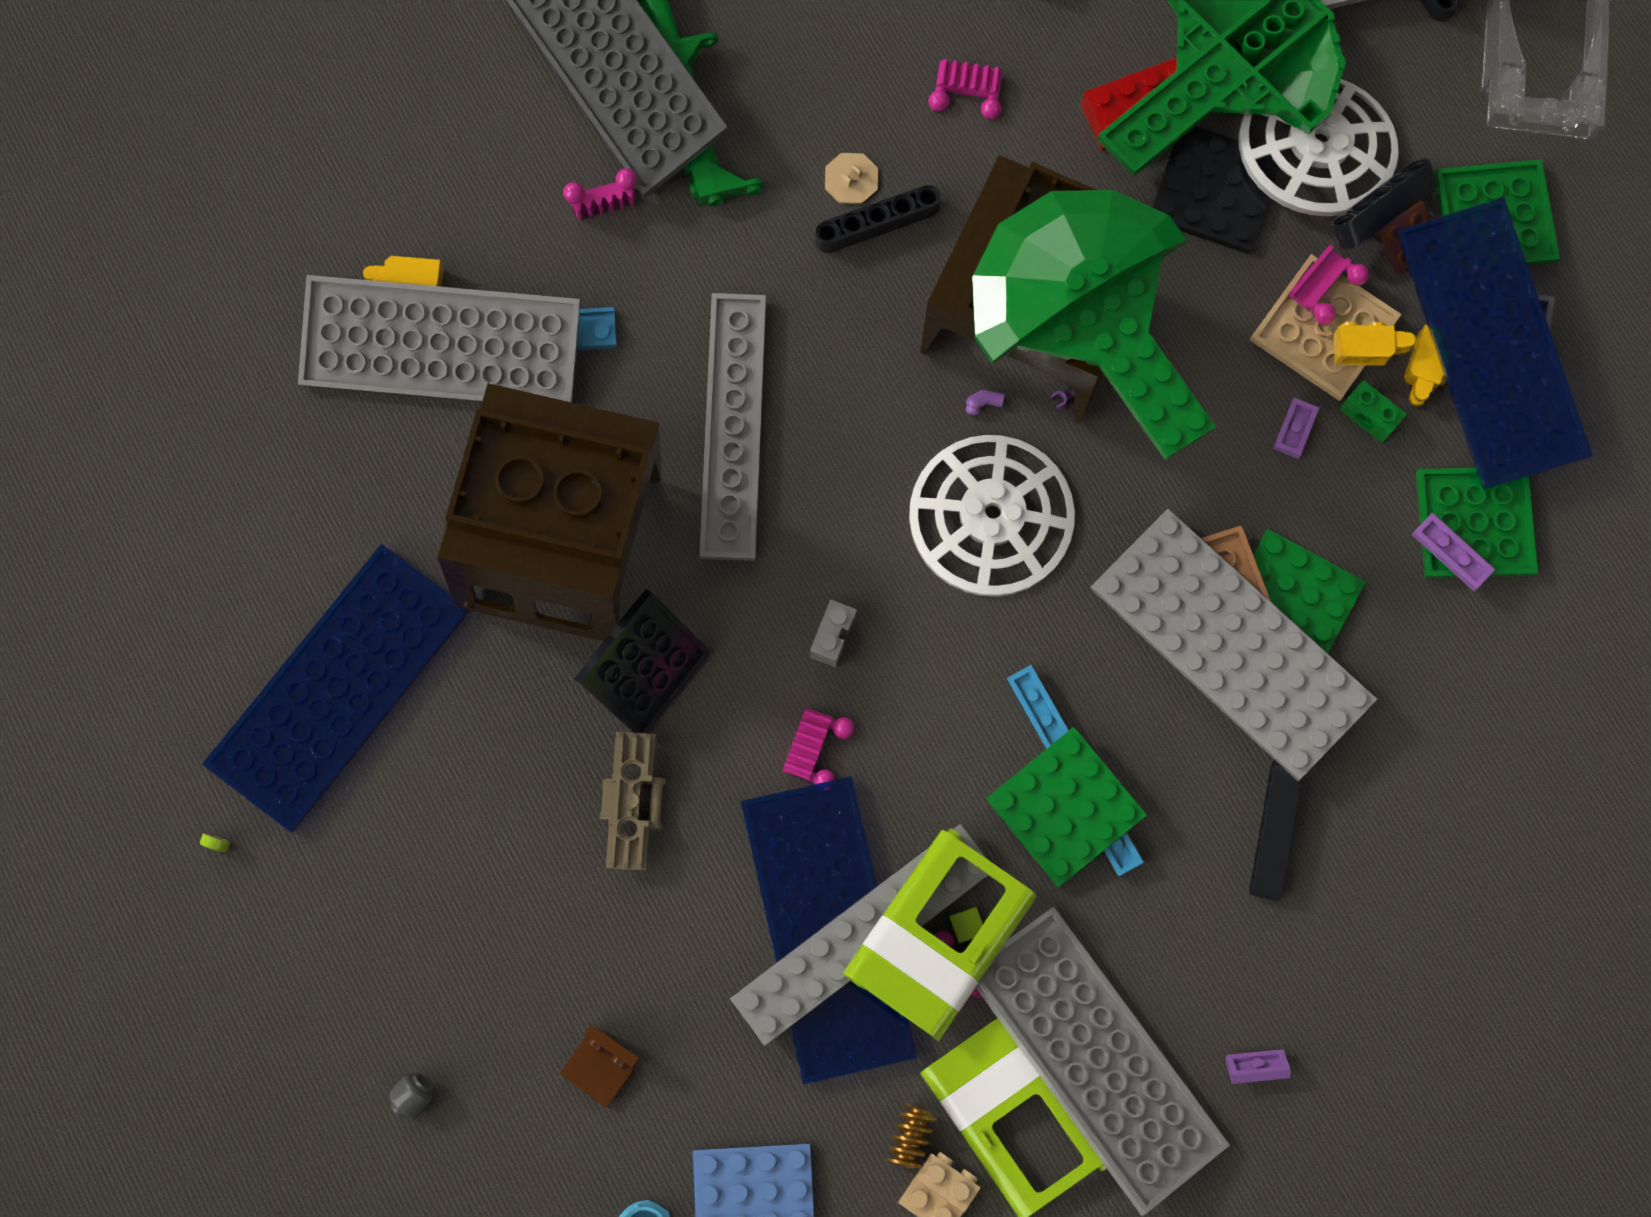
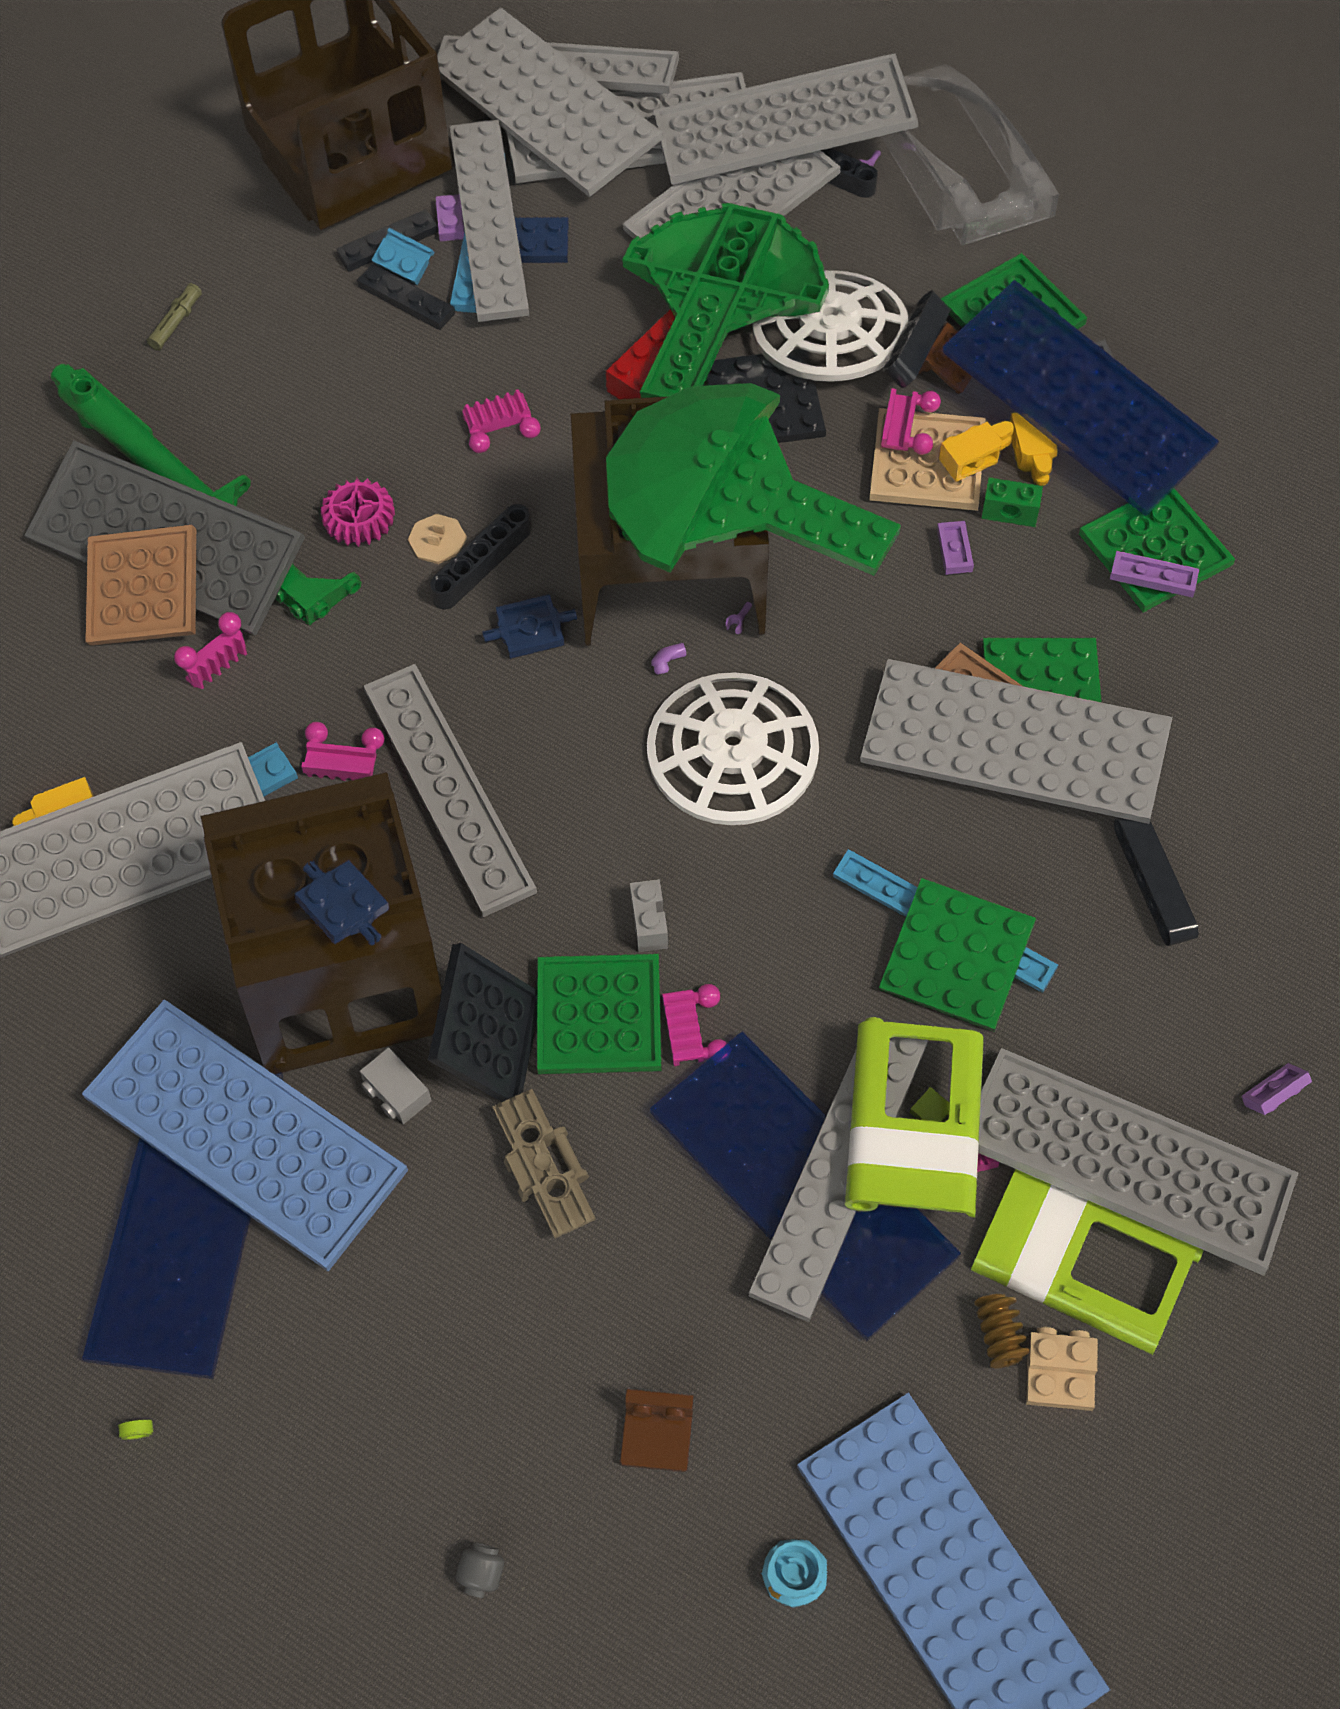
camera: 25 degrees left, 15 degrees down
(412, 648) = (246, 1134): none -> medium blue plate
(550, 670) = (395, 1085): none -> light grey brick
(554, 531) = (342, 902): none -> dark blue plate
(573, 99) = (141, 585): none -> medium nougat plate
(657, 352) = (339, 759): none -> dark pink gear
(746, 696) = (598, 1014): none -> green plate
(778, 107) = (353, 525): none -> dark pink gear
(882, 308) = (529, 626): none -> dark blue plate

